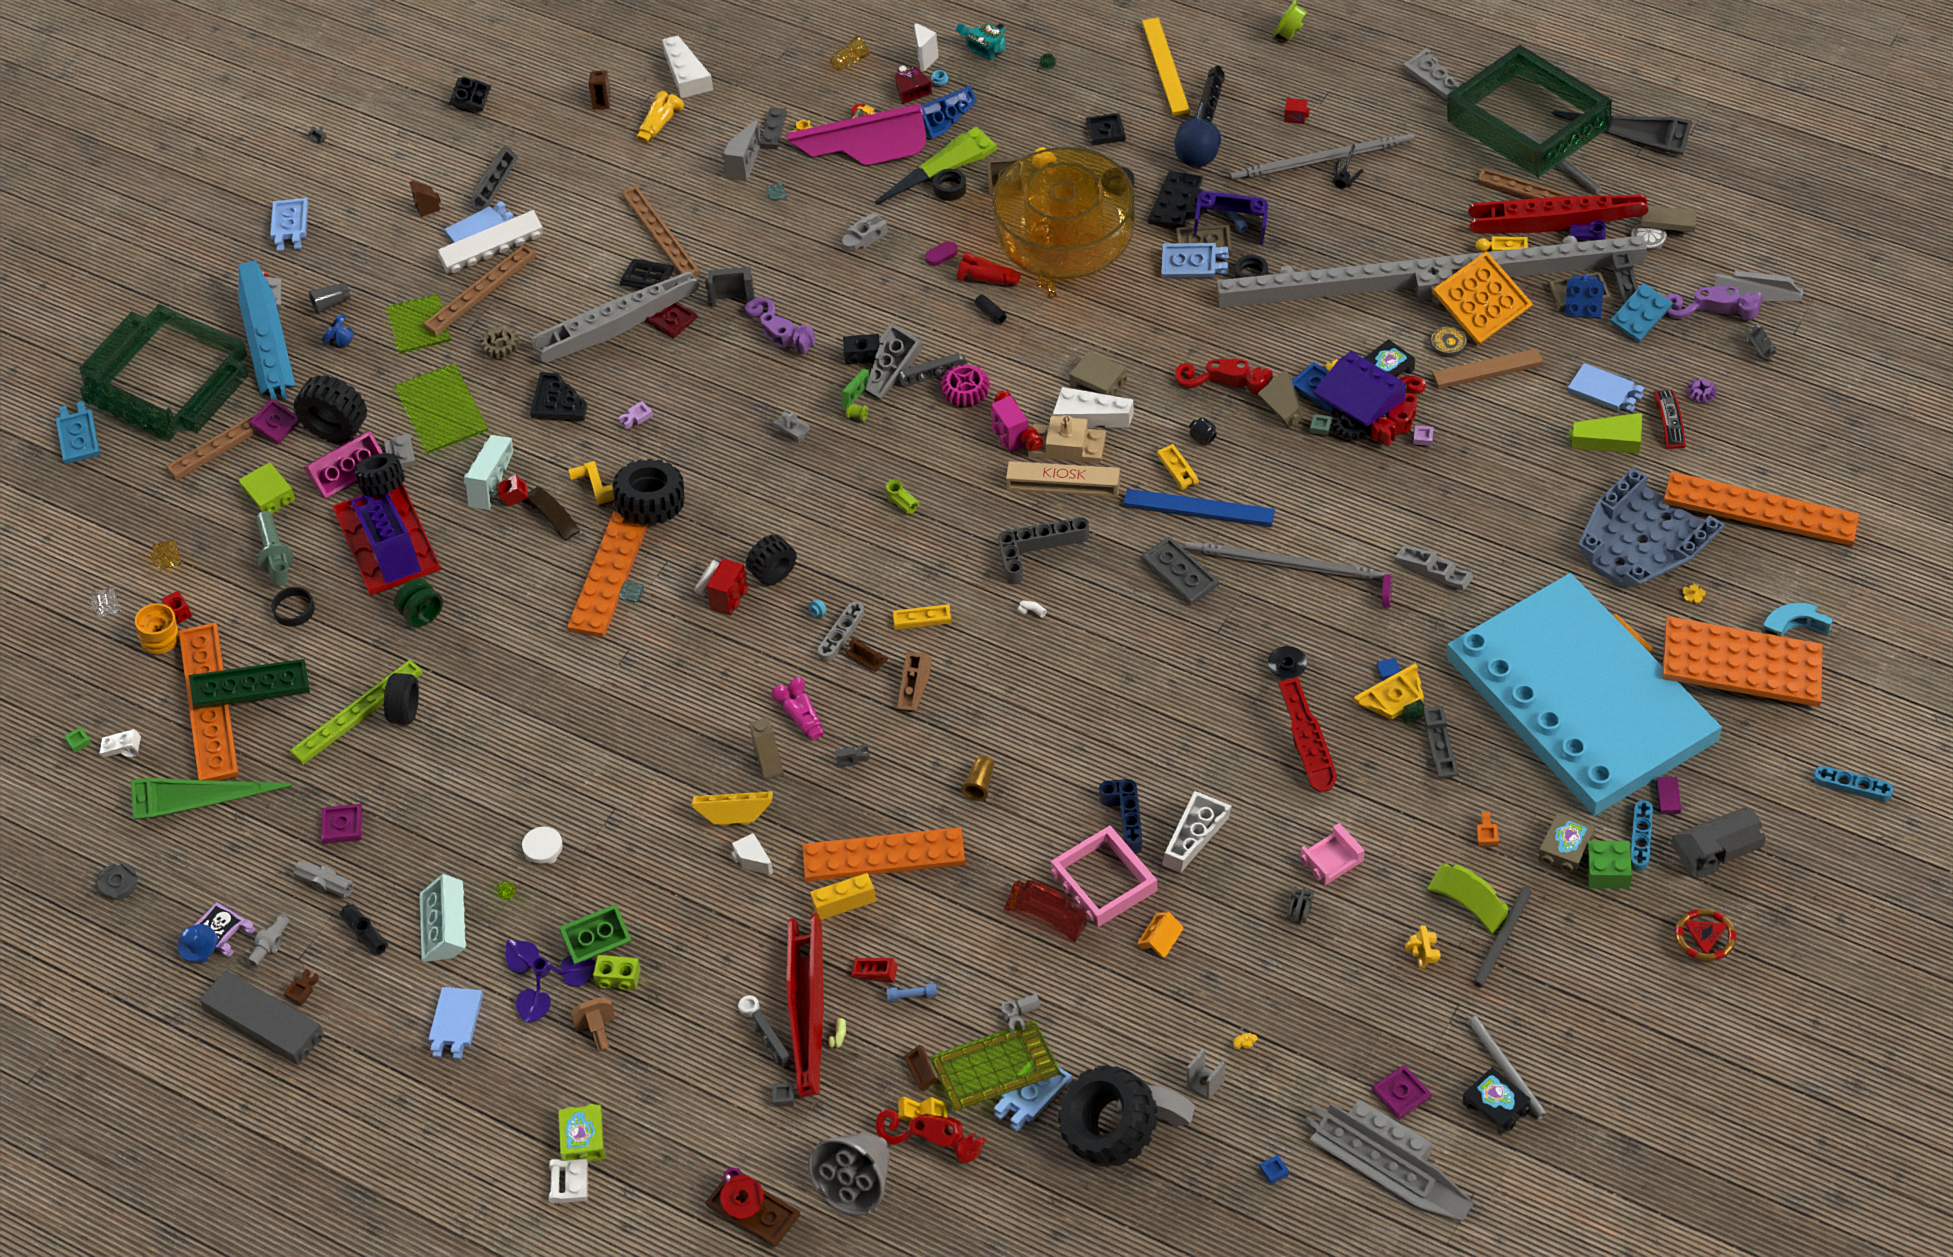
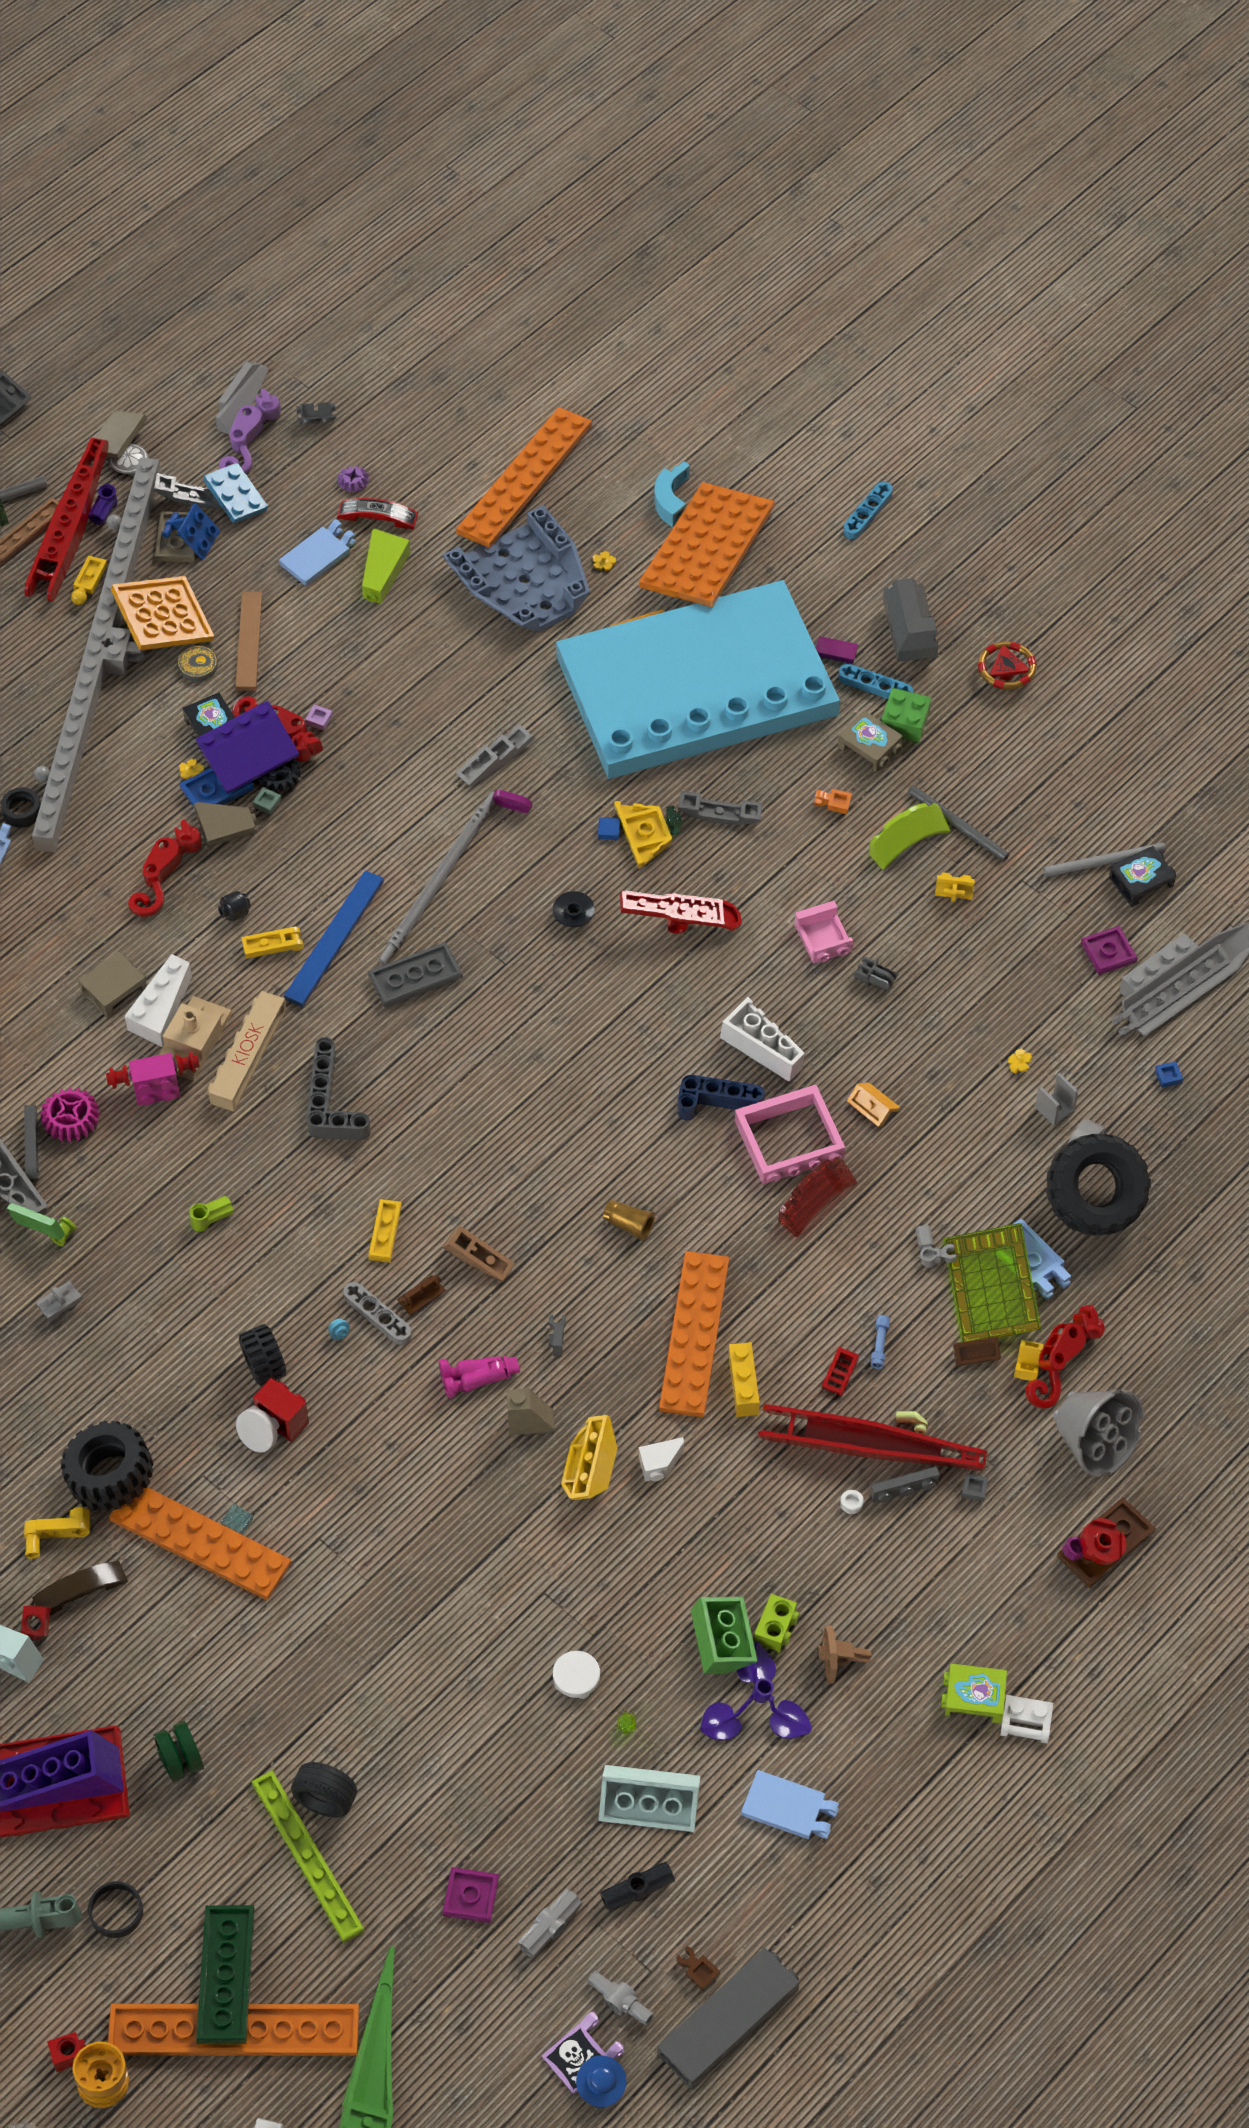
camera: 80 degrees left, 5 degrees up
(1033, 606) = (412, 1120): white arm -> none

